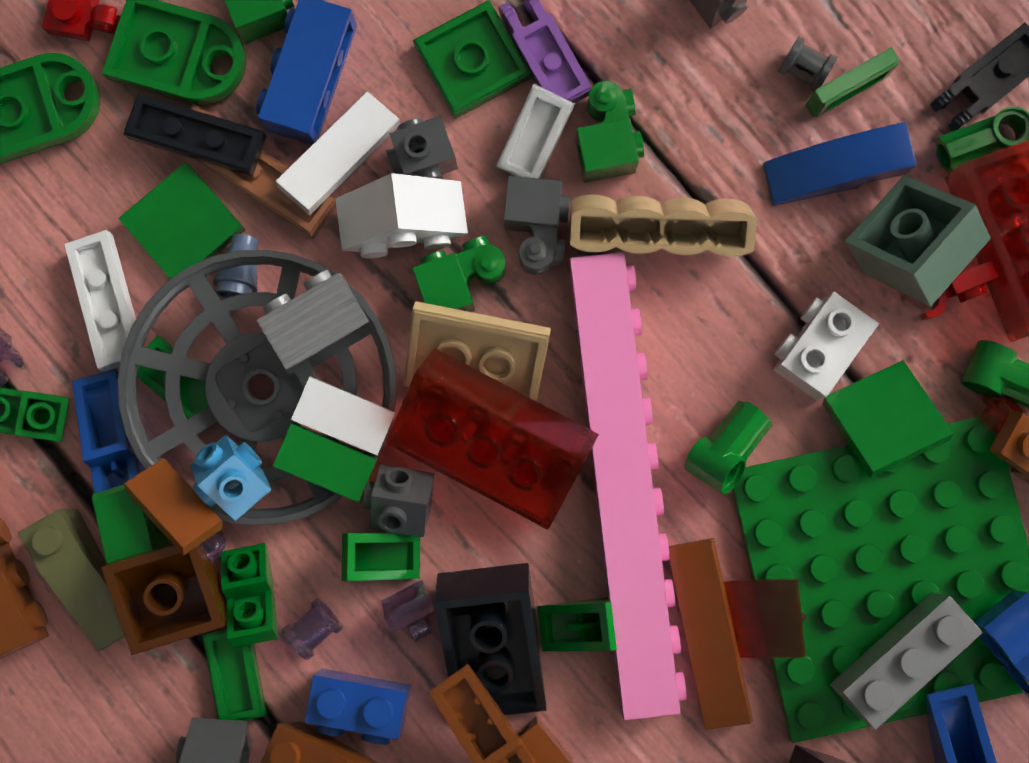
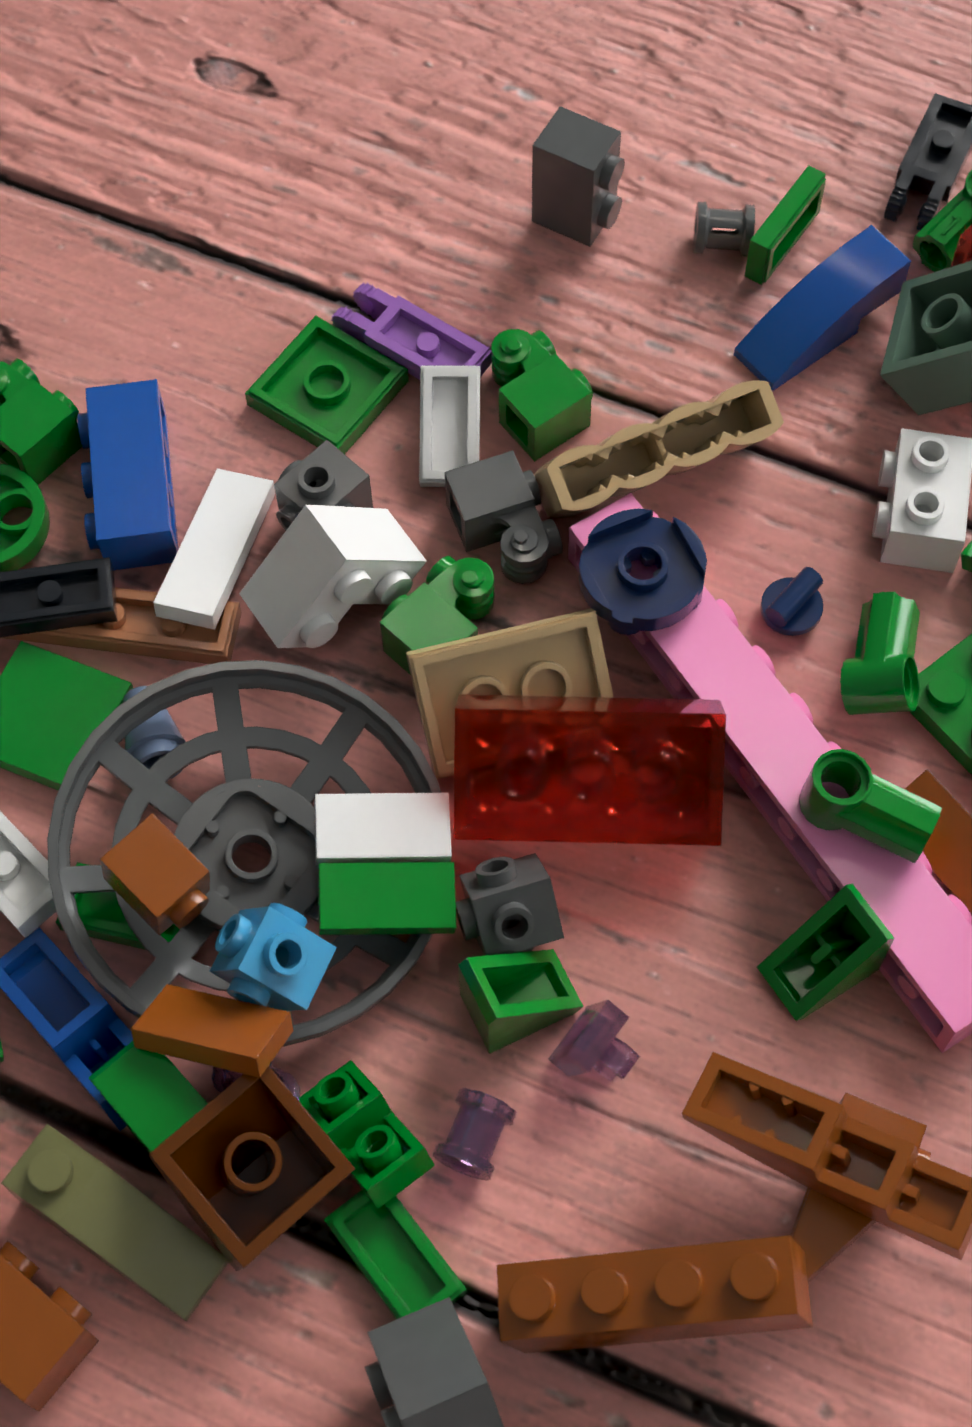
camera: 30 degrees left, 20 degrees down
(183, 390) = (157, 876): none -> dark orange brick
(312, 319) = (287, 718): light grey brick -> none
(358, 705) = (593, 1198): blue brick -> none
(492, 627) = (721, 996): black slope -> none
(615, 301) = (634, 603): none -> dark blue plate
(652, 562) = (874, 806): none -> green piece
(694, 376) = (793, 604): none -> dark blue plate

